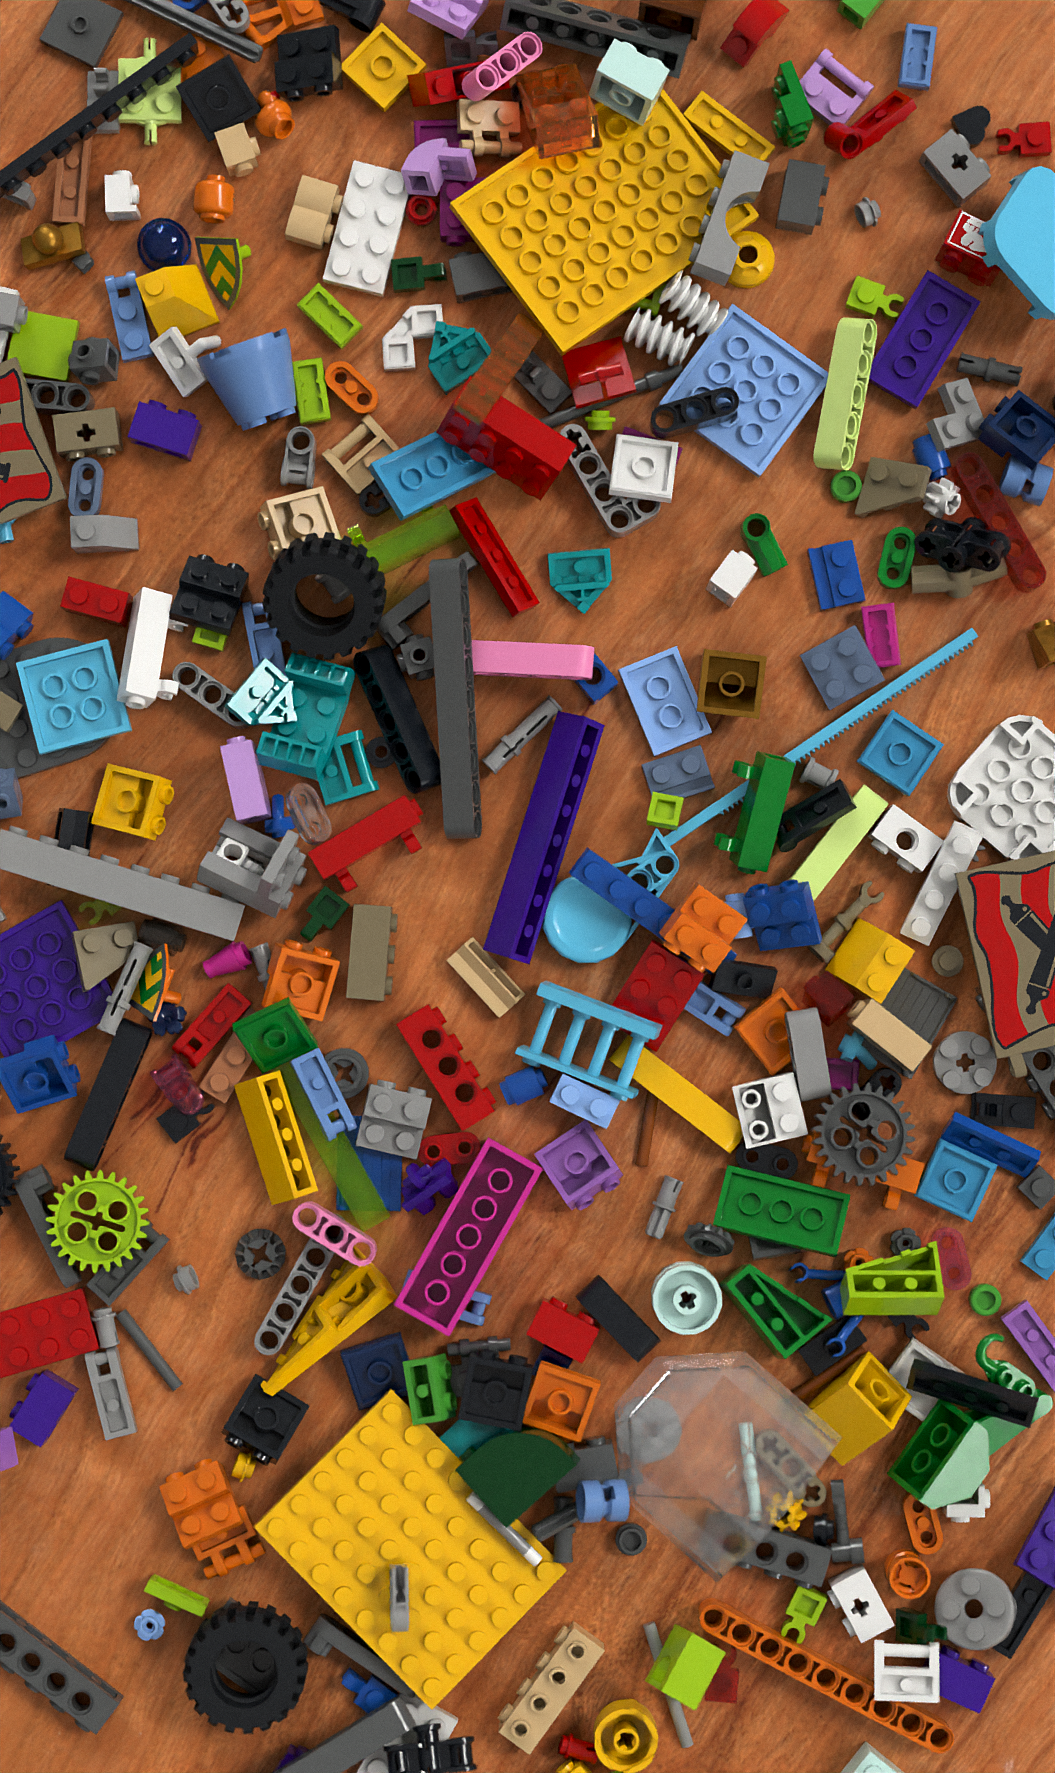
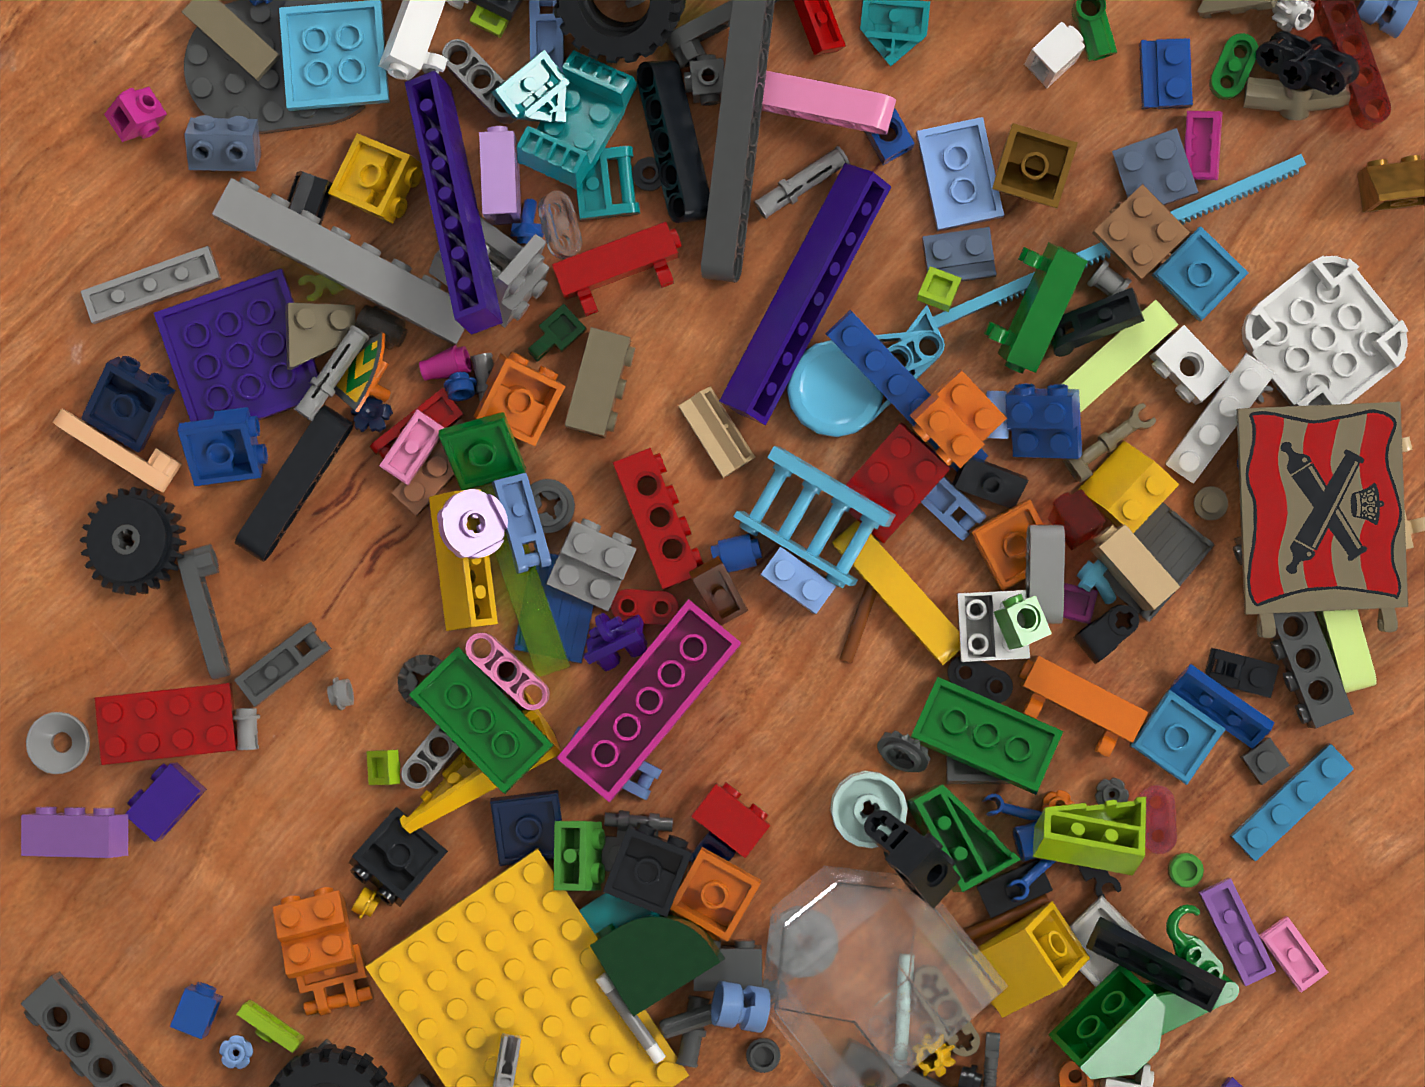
camera: 15 degrees right, 0 degrees up
(88, 1249) = (273, 587): lime gear -> none
(107, 1593) = (197, 1010): none -> blue brick
(111, 1393) = (239, 800): light grey plate -> none
(149, 1350) = (288, 761): dark grey bar -> none
(175, 1082) = (370, 487): clear pink piece -> none
(179, 1124) = (367, 523): black plate -> none
(208, 815) = (453, 203): none -> dark purple brick
(210, 1043) = (412, 447): none -> bright pink plate
(237, 1339) = (383, 767): none -> lime plate
(244, 979) = (460, 386): none -> blue plate
(296, 1105) = (453, 521): none -> plate
(319, 1282) = (481, 720): none -> green plate
(513, 1123) = (718, 591): none -> reddish brown plate
(579, 1166) = (780, 649): medium lavender plate -> none
(618, 1318) = (791, 818): black beam -> none
(663, 1207) = (861, 709): light grey axle -> none
(734, 1337) = (914, 857): none -> black brick
(807, 1107) = (1035, 621): none -> bright green brick
(839, 726) = (1140, 232): none -> medium nougat plate
(847, 1158) = (1109, 647): dark grey gear -> none
(978, 1074) = (1224, 601): light grey plate -> none

